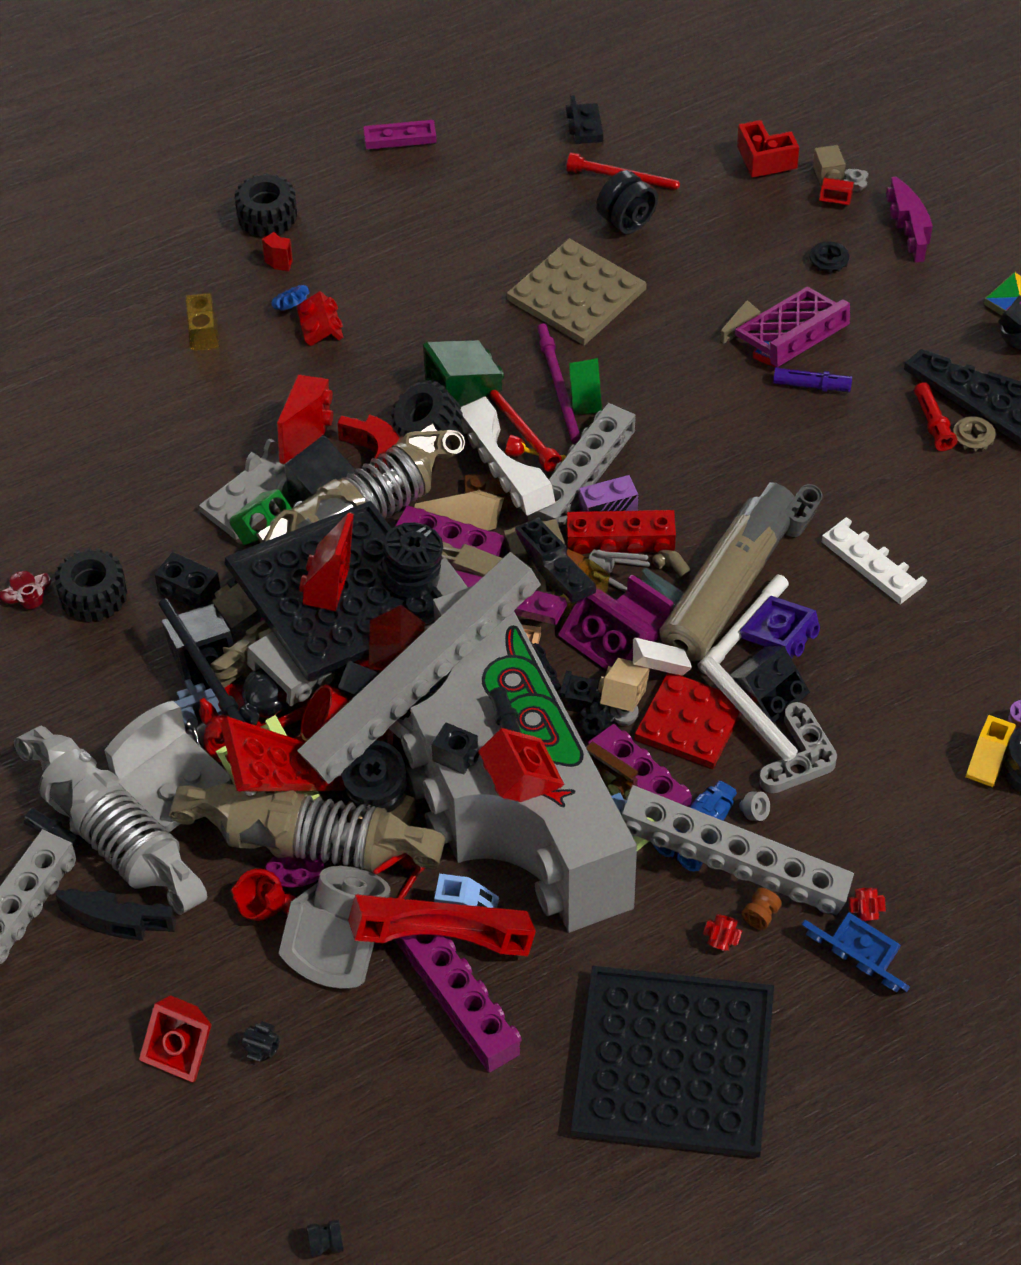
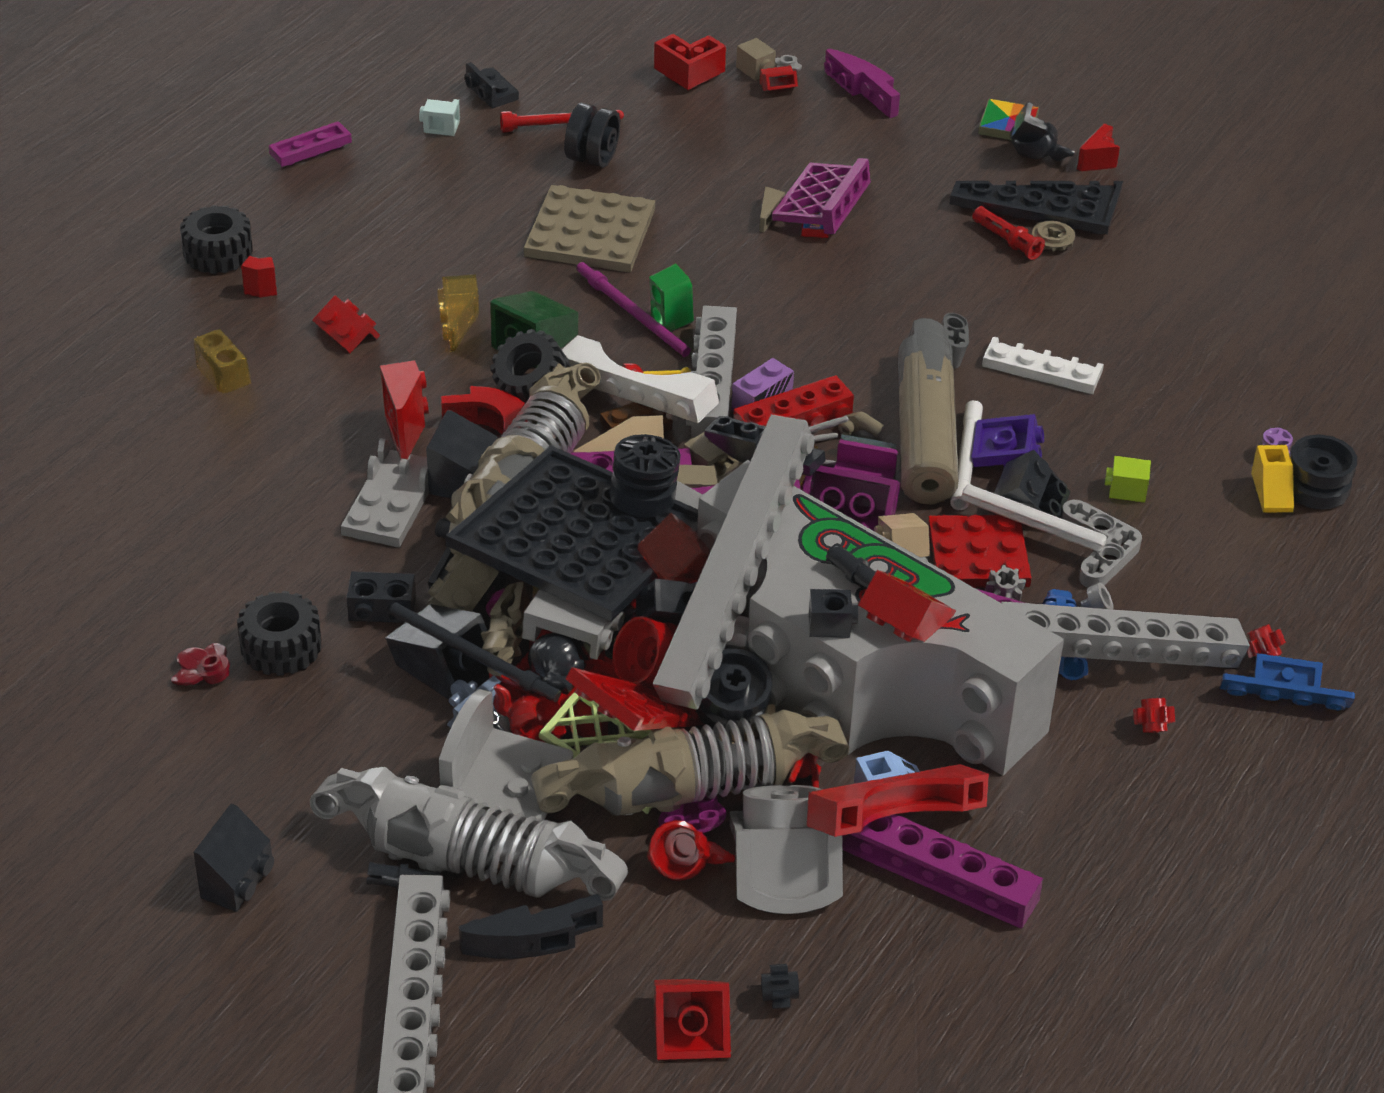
camera: 30 degrees left, 10 degrees down
(241, 520) = (406, 518): green piece -> none
(290, 297) = (302, 313): blue gear -> none
(328, 567) = (574, 498): red slope -> none
(419, 326) = (460, 307): none -> clear yellow slope
(521, 141) = (440, 117): none -> light aqua brick
(547, 456) = (670, 368): red piece -> none
(660, 657) = (921, 501): white slope -> none
(674, 1061) = (1193, 845): black plate -> none
(676, 765) = (1005, 583): none -> light grey gear
(760, 910) = (1172, 682): dark orange wheel -> none
(814, 380) = (885, 233): dark purple pin -> none
(838, 253) = (818, 133): black gear -> none
(864, 701) = (1128, 478): none -> lime brick

